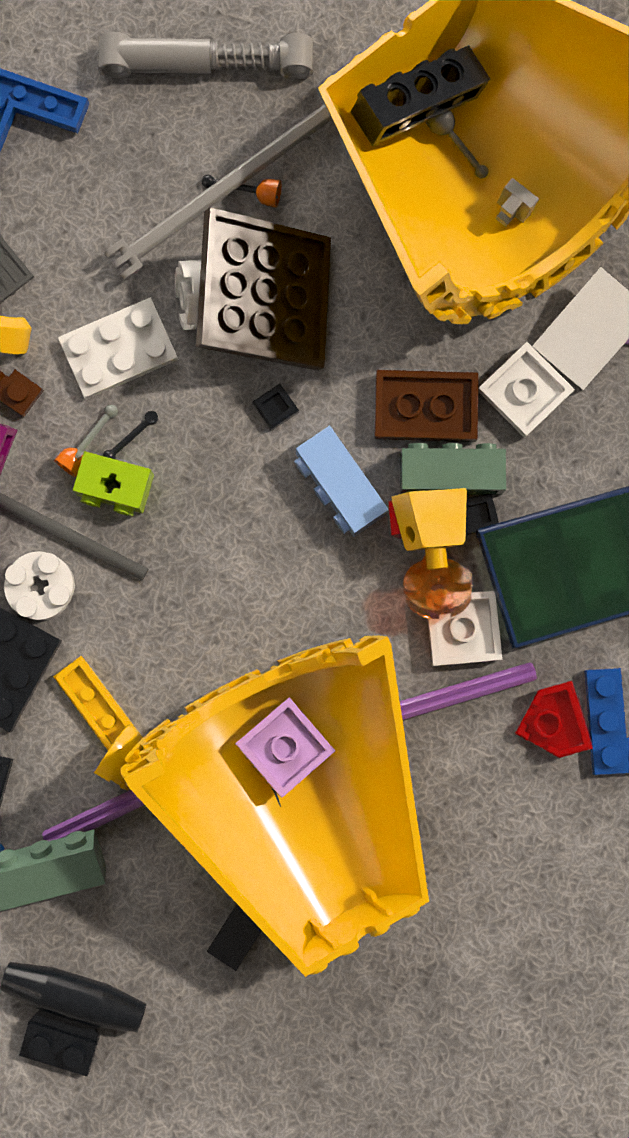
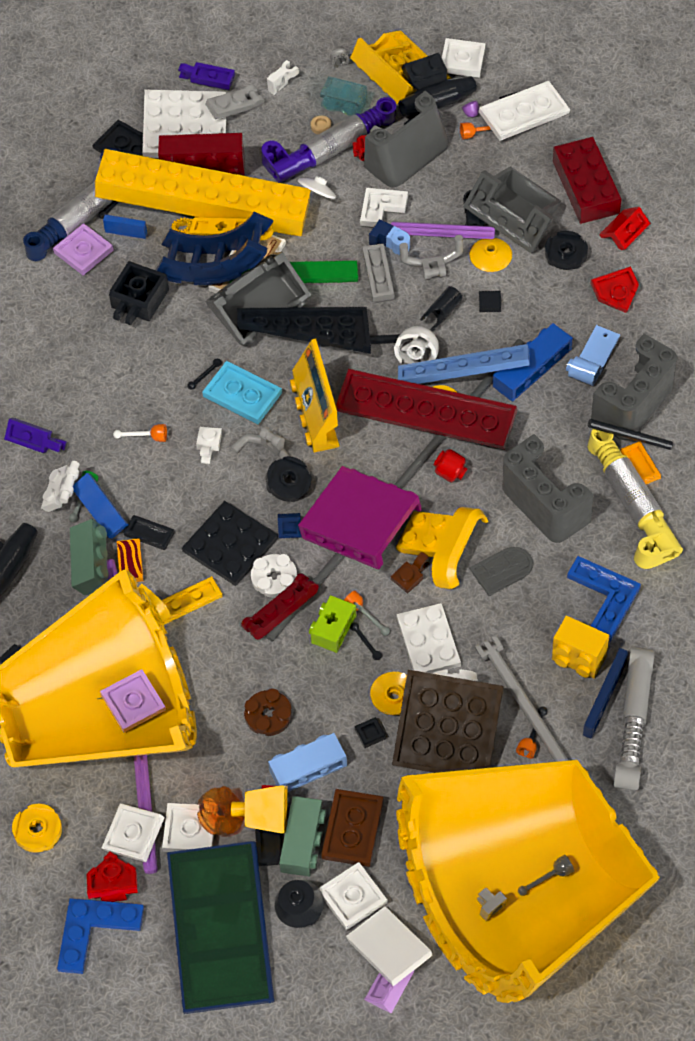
camera: 105 degrees right, 25 degrees down
(40, 807) = (130, 557): none -> tile
(95, 564) = (280, 607): none -> dark red plate
(114, 129) = (580, 647): none -> yellow brick
(173, 96) = (605, 693): none -> dark blue tile
(203, 367) = (384, 687): none -> yellow dish
(267, 533) = (269, 700): none -> reddish brown plate
(419, 94) = (581, 875): black brick -> none
(486, 705) = (133, 832): none -> white tile
(511, 860) = (42, 840): none -> yellow plate
(550, 458) = (299, 903): none -> black cone

